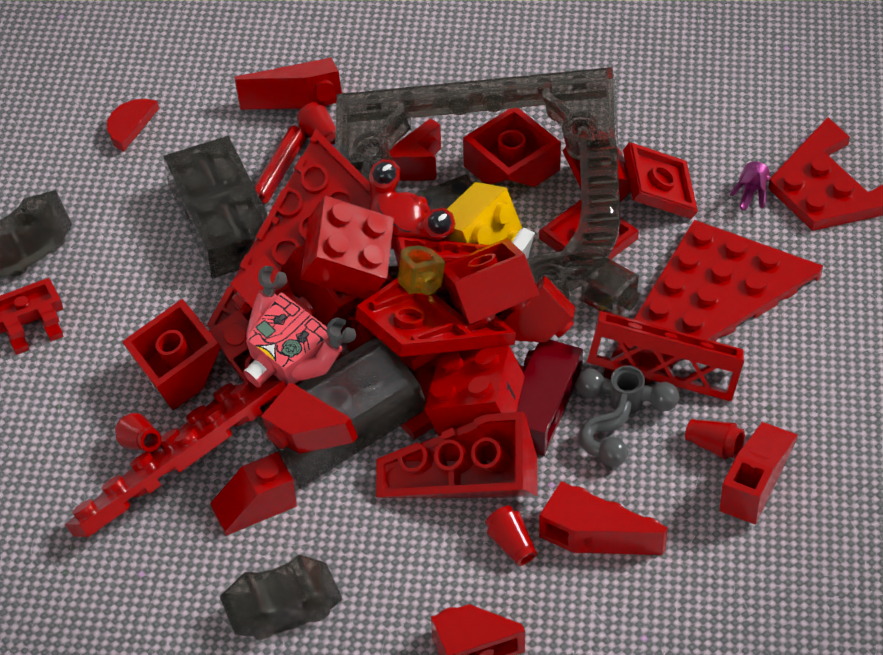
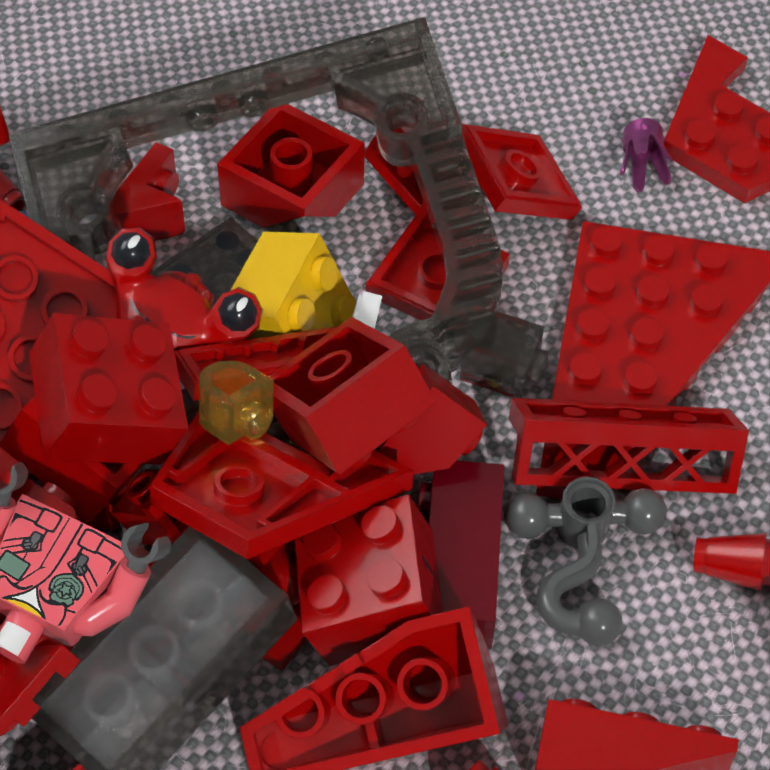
camera: 20 degrees left, 5 degrees up
(306, 422) = (118, 709): red slope -> none

